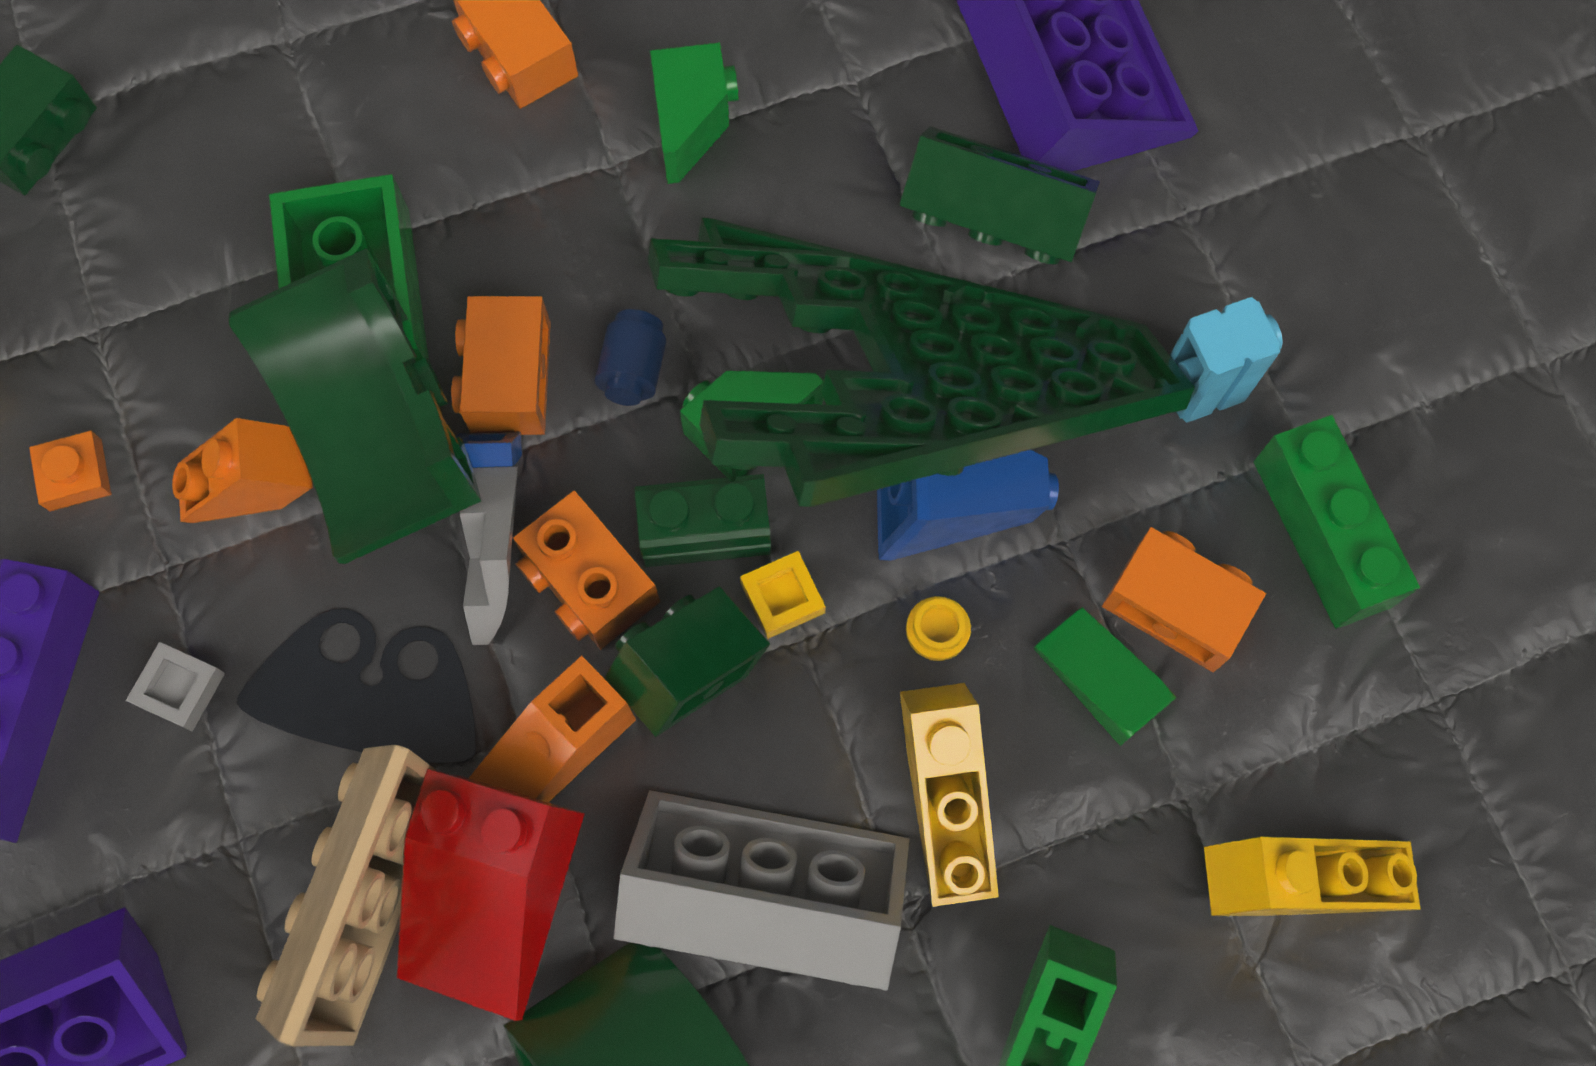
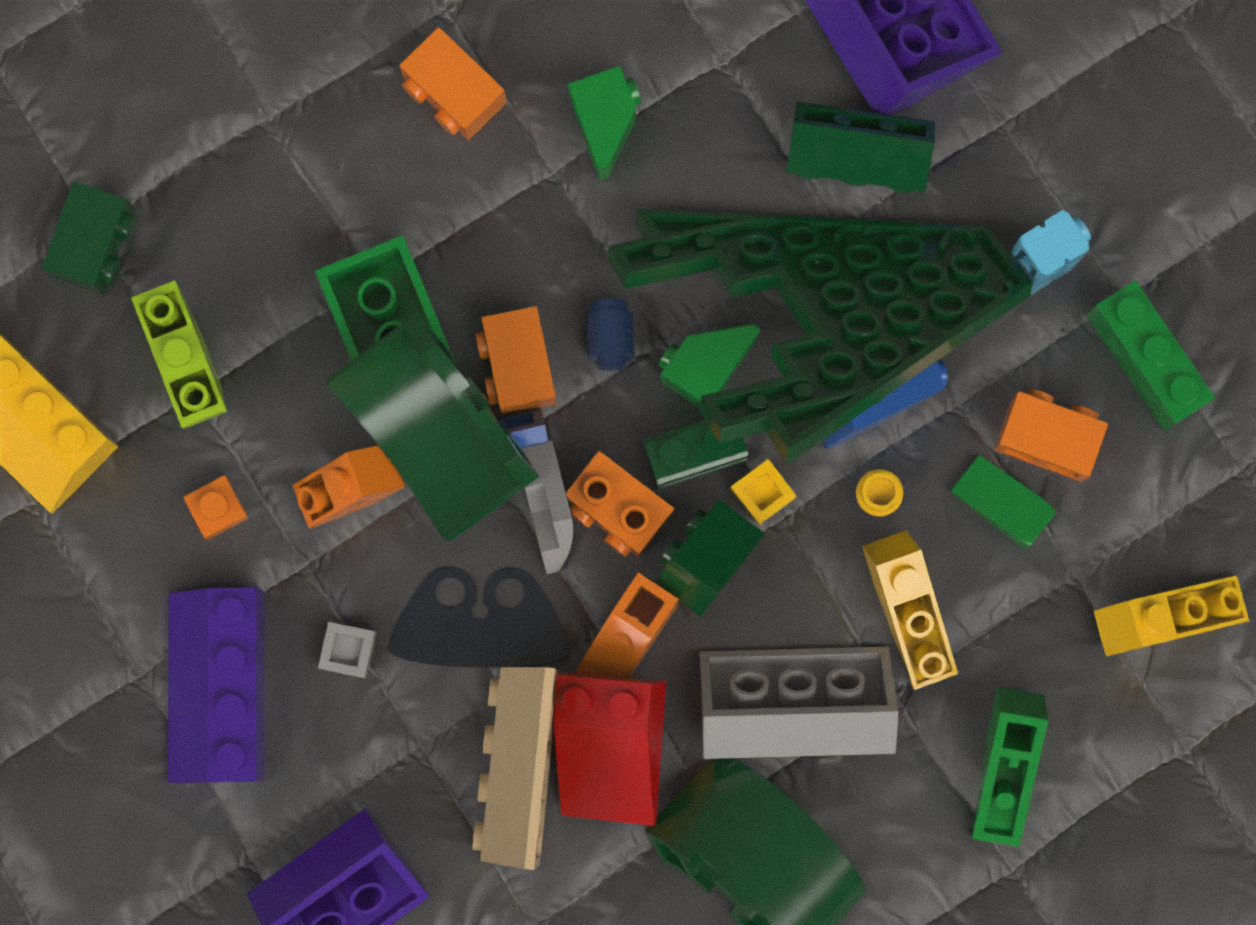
camera: 10 degrees left, 10 degrees up
(79, 267) = (180, 354): none -> lime slope

